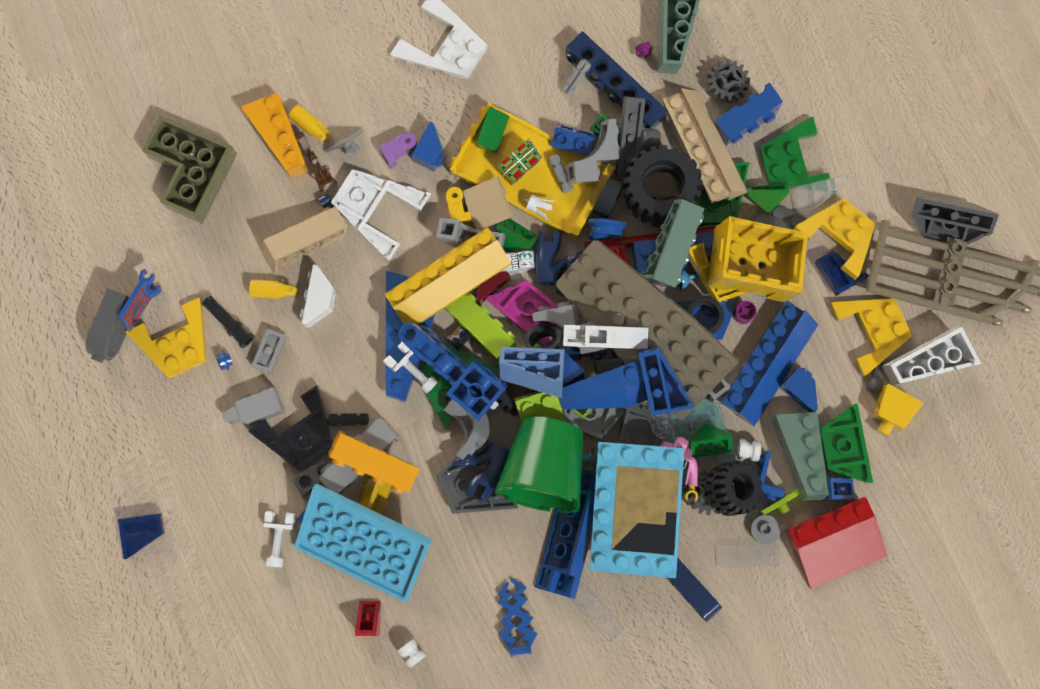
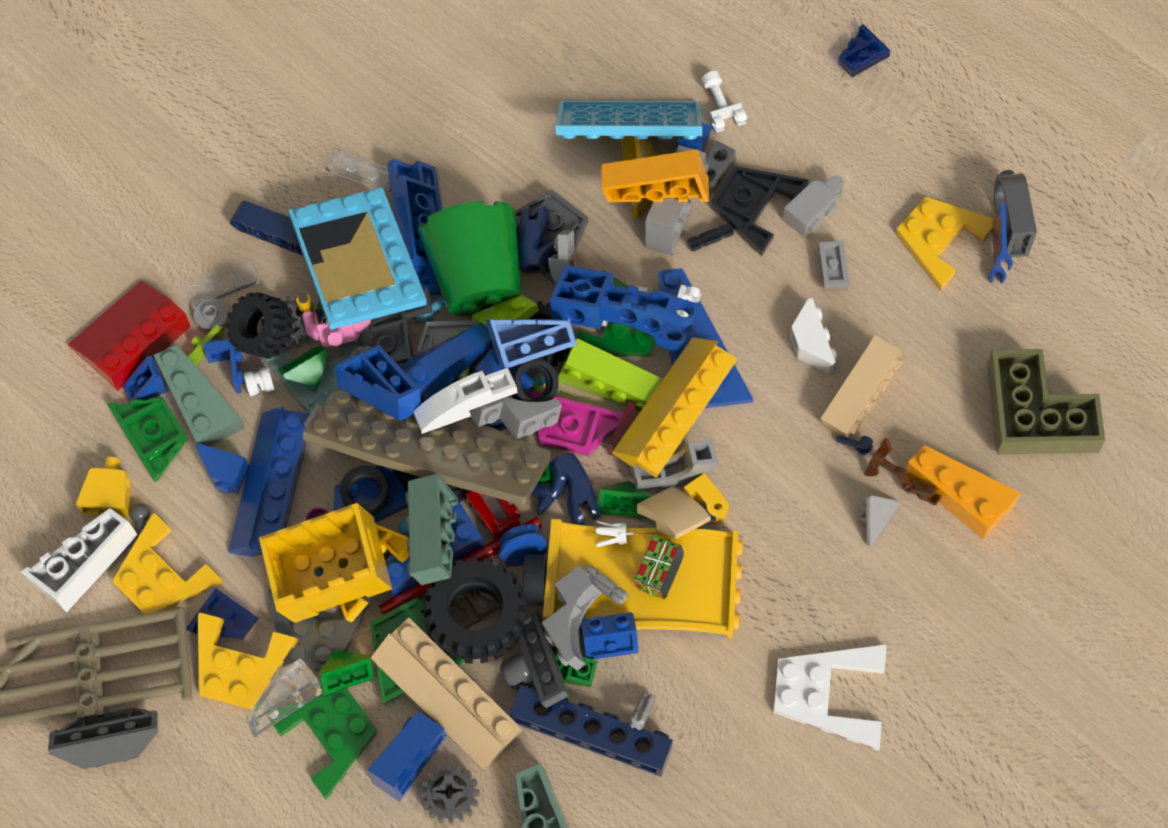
camera: 155 degrees right, 15 degrees down
(224, 360) = (875, 236): blue plate -> none
(233, 327) = (884, 271): black pin -> none
(270, 289) = (867, 325): yellow piece -> none
(309, 123) = (933, 520): yellow piece -> none
(361, 196) = (825, 462): white wing -> none
(368, 618) = (588, 67): red slope -> none
(397, 148) = (809, 543): medium lavender leg -> none
(411, 653) = (531, 59): white wheel -> none
(429, 149) = (775, 550): blue slope -> none
(458, 337) = (636, 357): black tile -> none
(492, 130) = (710, 595): green slope -> none
(516, 610) = (420, 122): blue piece -> none
(520, 262) = (607, 470): white leg -> none
(643, 50) = (574, 790): magenta plate -> none

